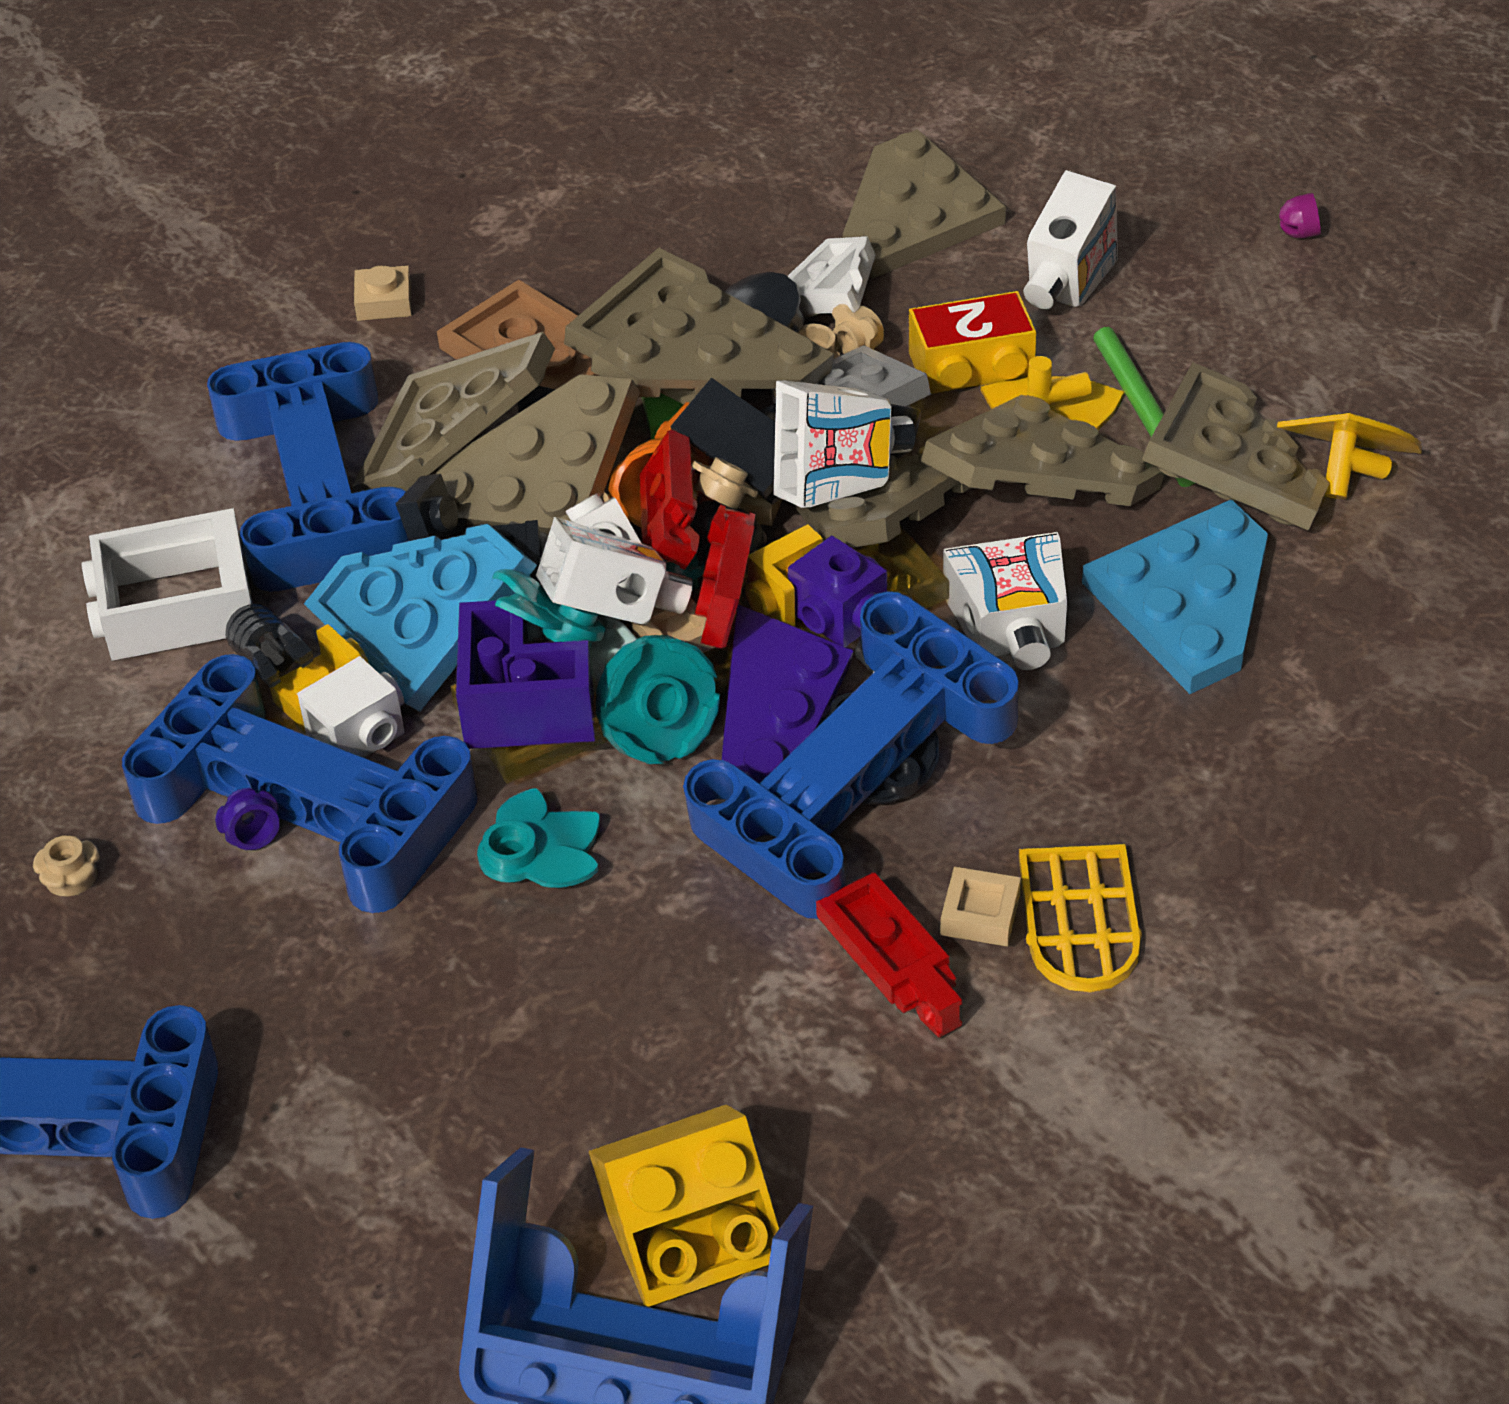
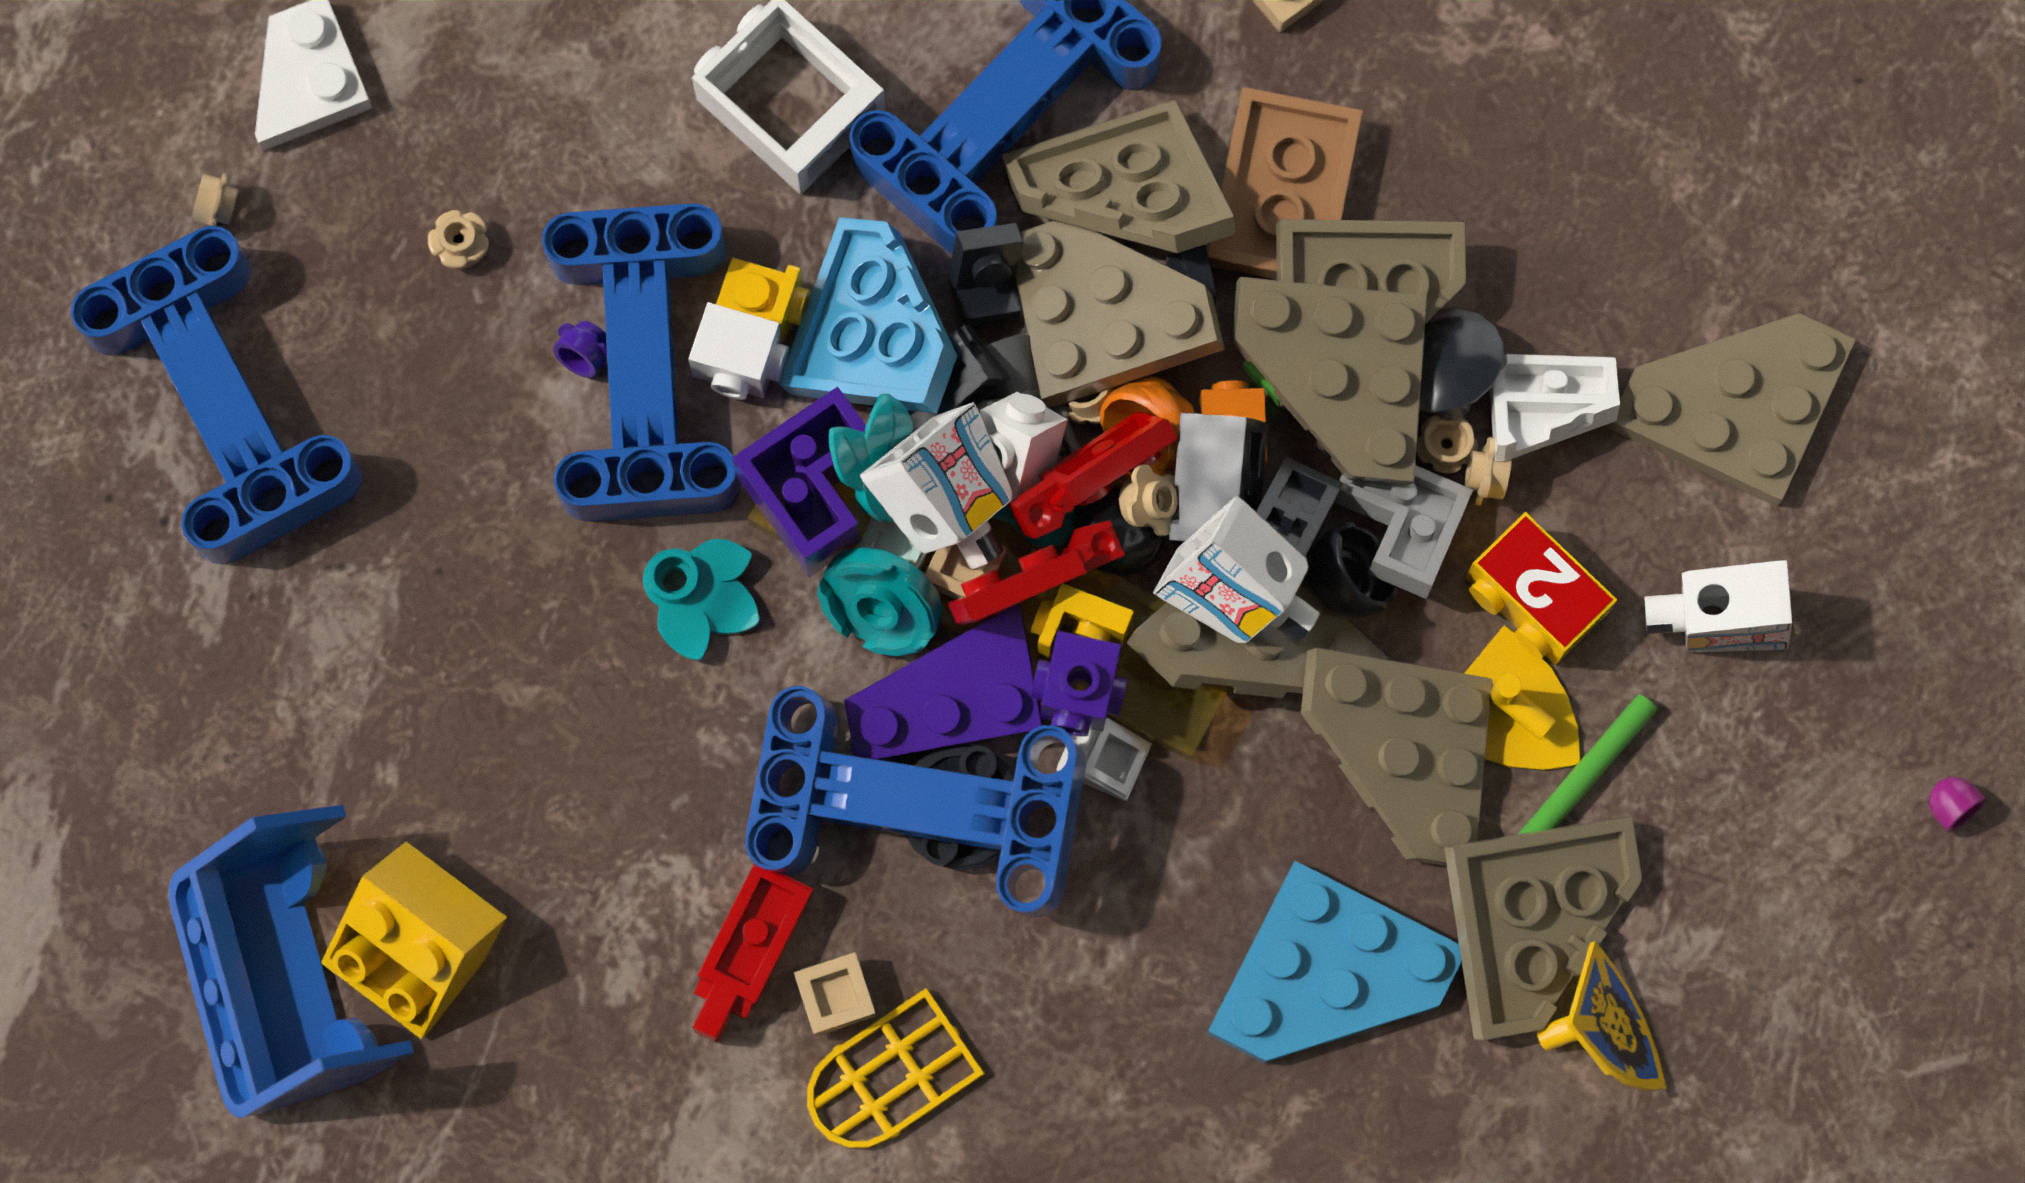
camera: 55 degrees right, 30 degrees up
(276, 652) = (760, 229): black hinge -> none
(1010, 596) = (1207, 823): torso -> none

